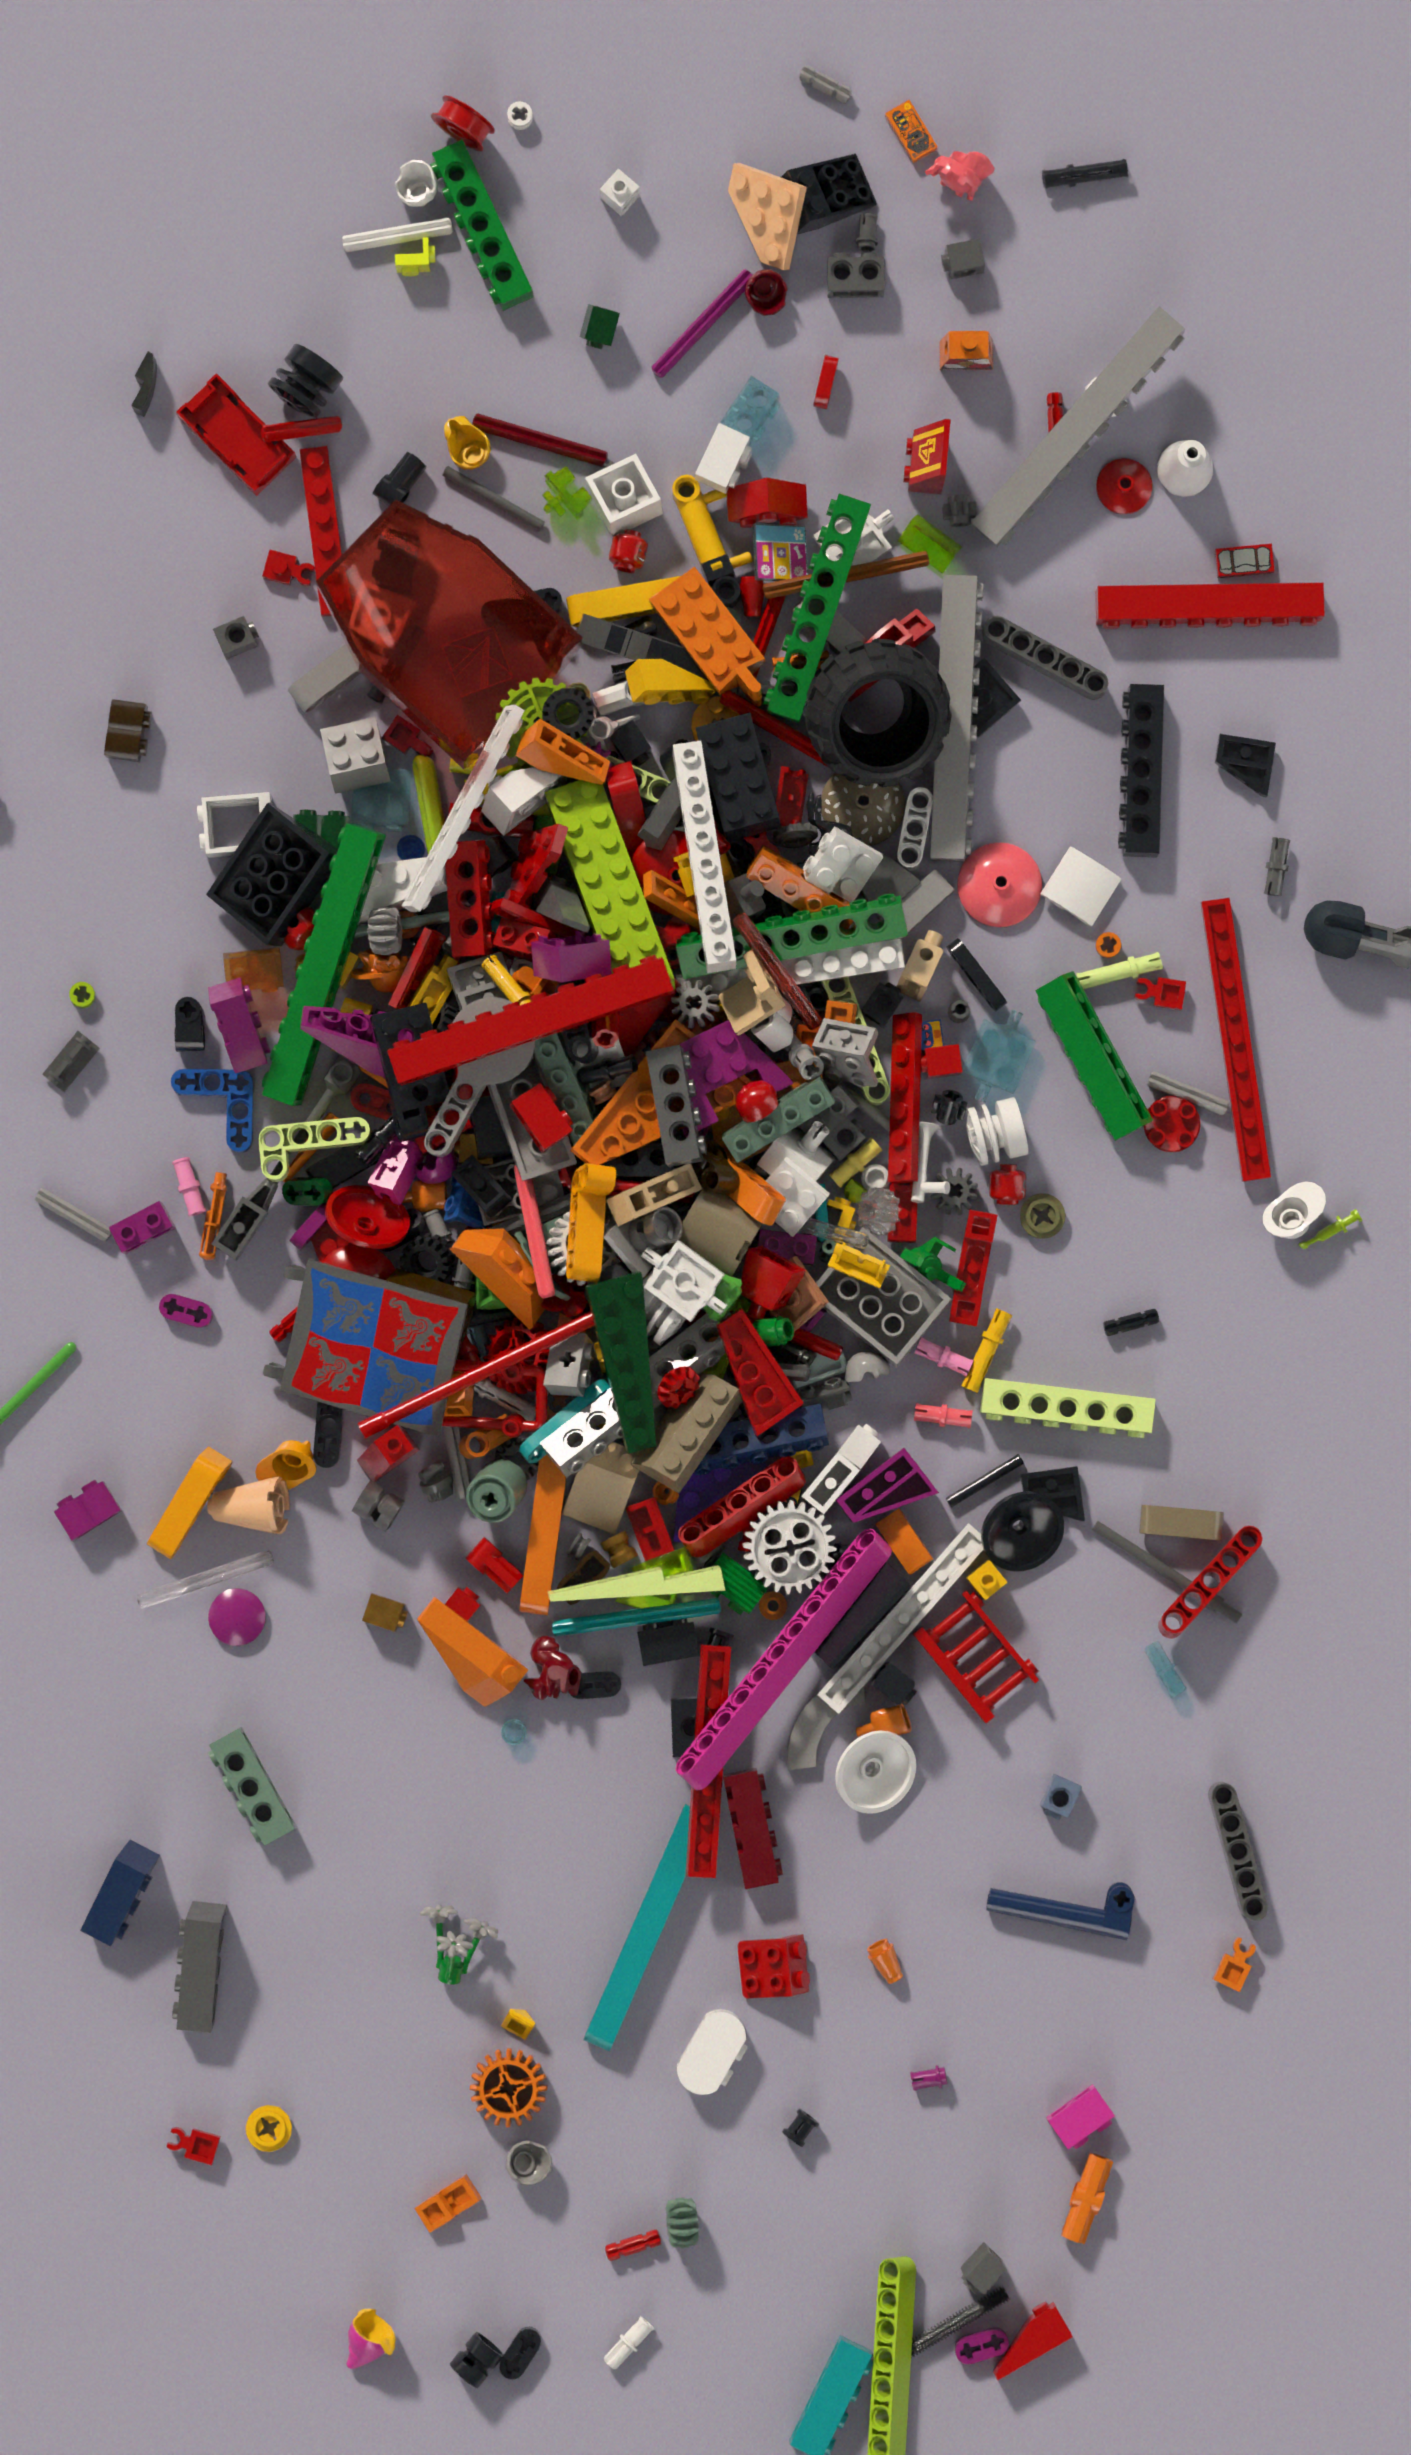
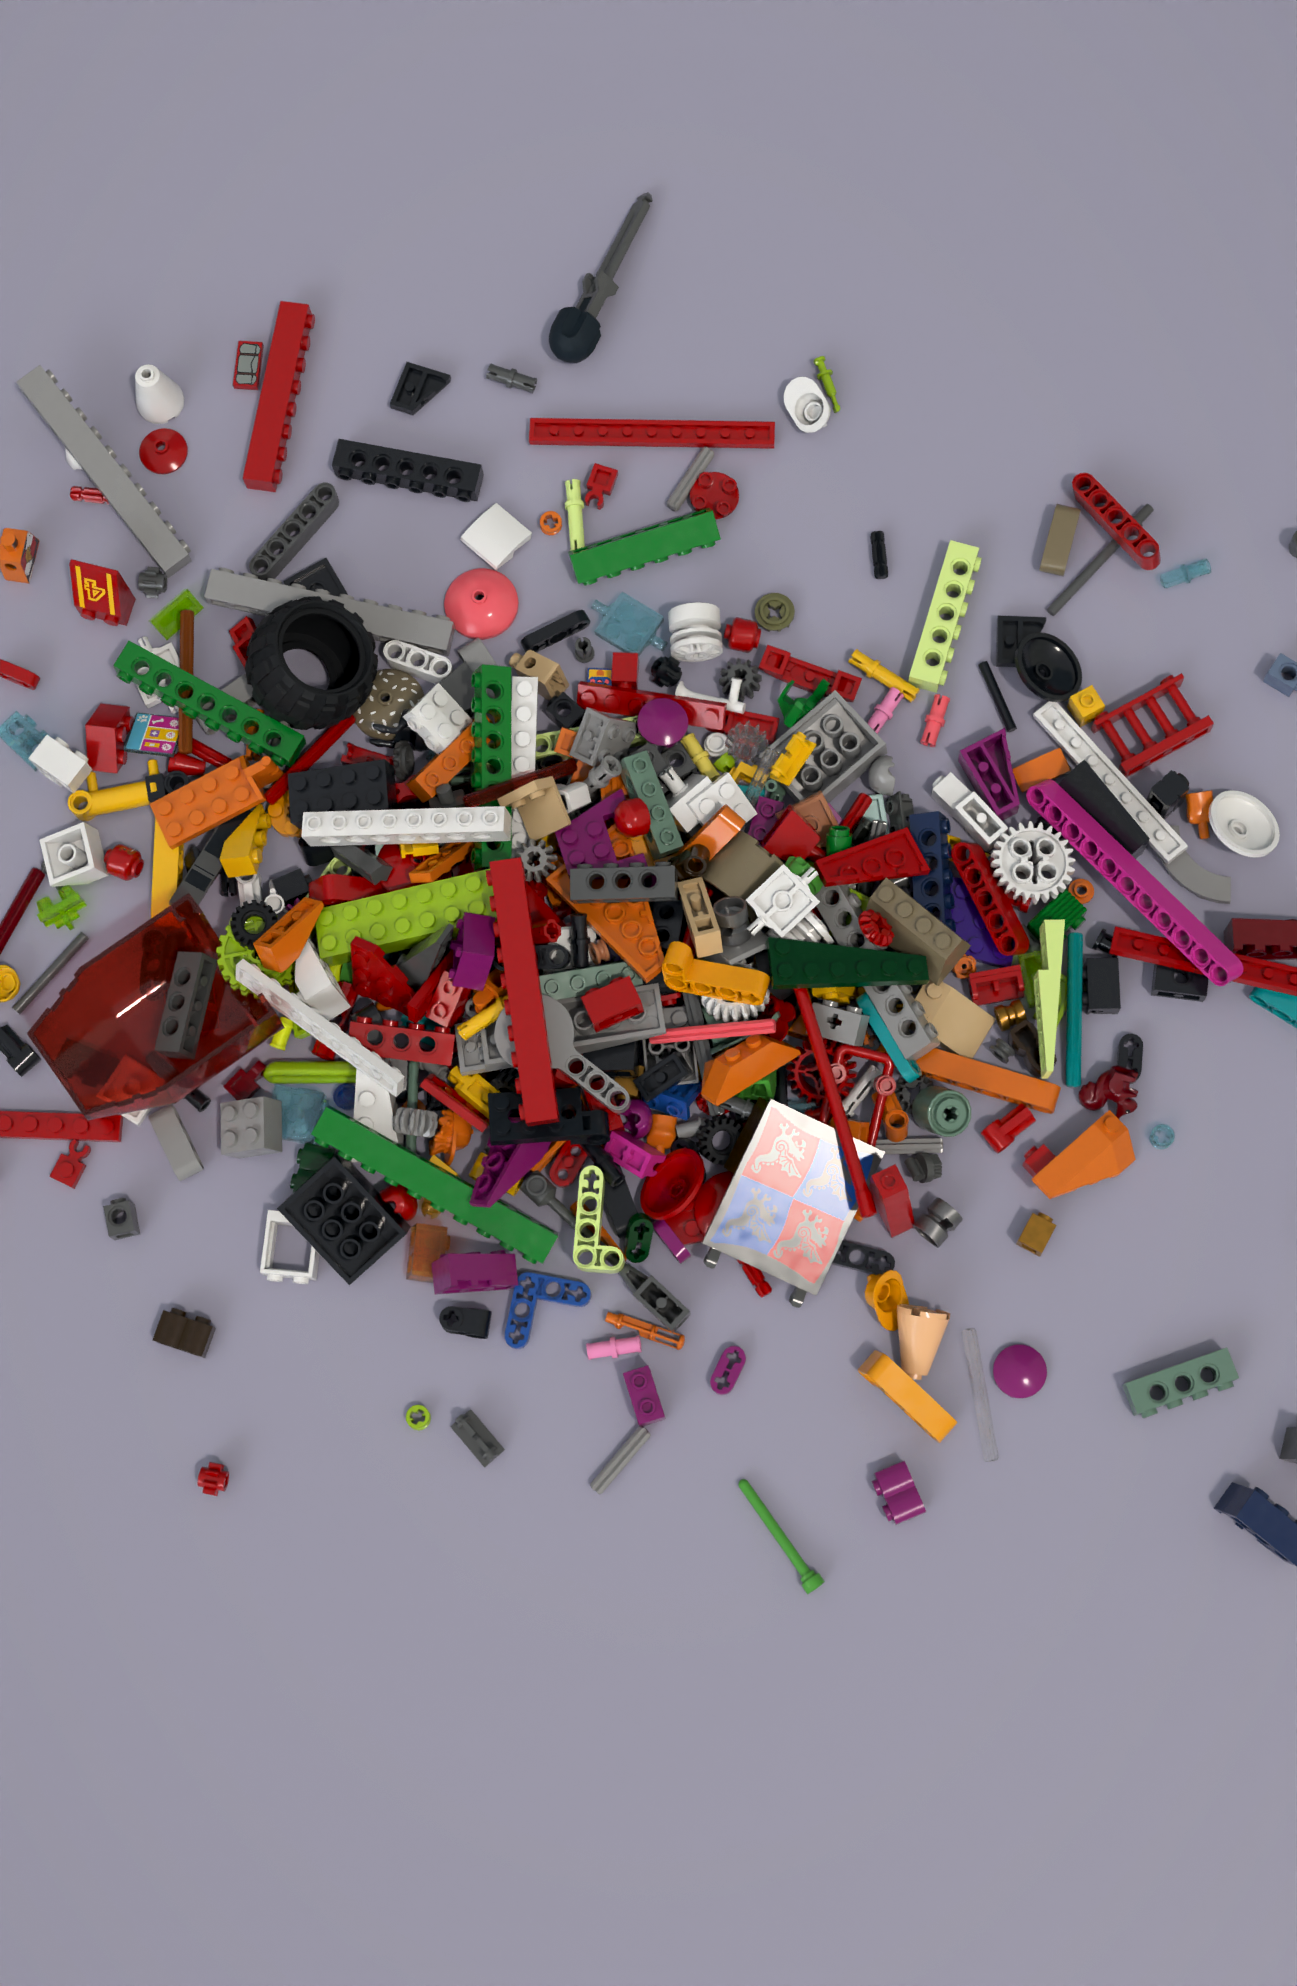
camera: 65 degrees left, 10 degrees down
(492, 659) = (186, 1005): none -> dark grey brick
(880, 1114) = (662, 722): none -> magenta dish

